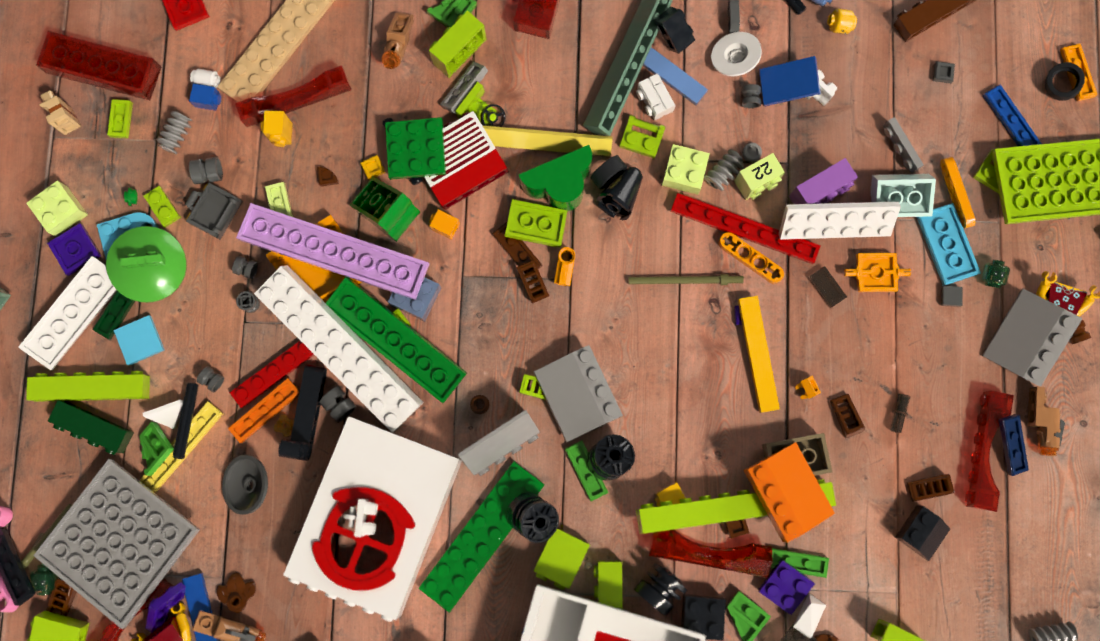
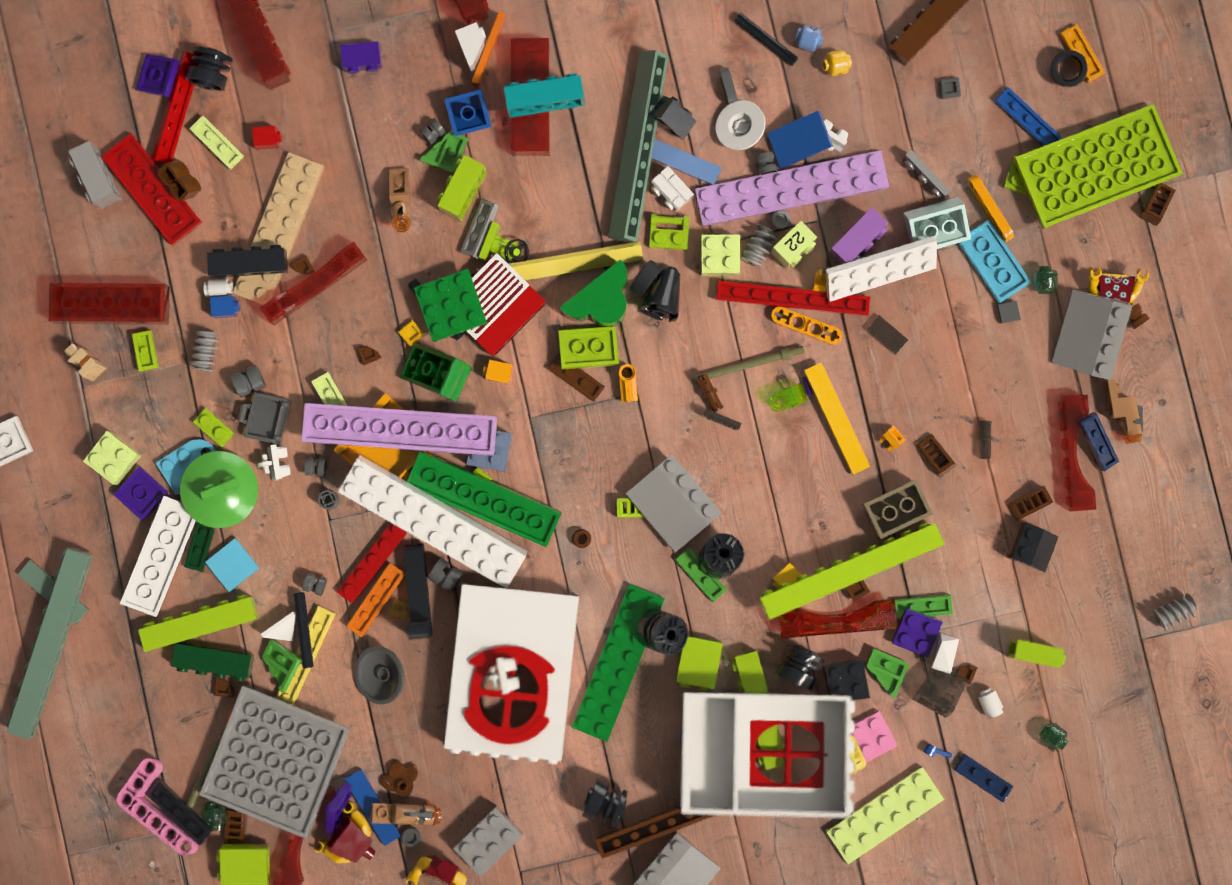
camera: 15 degrees left, 5 degrees up
(93, 456) = (223, 688): none -> reddish brown tile
(131, 196) = (181, 426): green plate -> none
(210, 245) = (274, 454): none -> white hips
(237, 60) = (247, 262): none -> black brick
(277, 128) = (307, 321): yellow brick -> none
(290, 79) = (303, 266): none -> reddish brown tile
(499, 443) = (612, 571): light grey slope -> none
(540, 296) = (609, 420): reddish brown slope -> none
(641, 296) = (709, 392): none -> reddish brown pin
(646, 325) = (722, 420): none -> clear smoke tile
(719, 322) = (791, 397): none -> clear neon green piece
(770, 126) = (792, 188): none -> lavender plate
(775, 219) = (820, 282): none -> light orange tile
(789, 492) = (897, 544): orange slope -> none
(877, 272) = (931, 308): light orange plate -> none

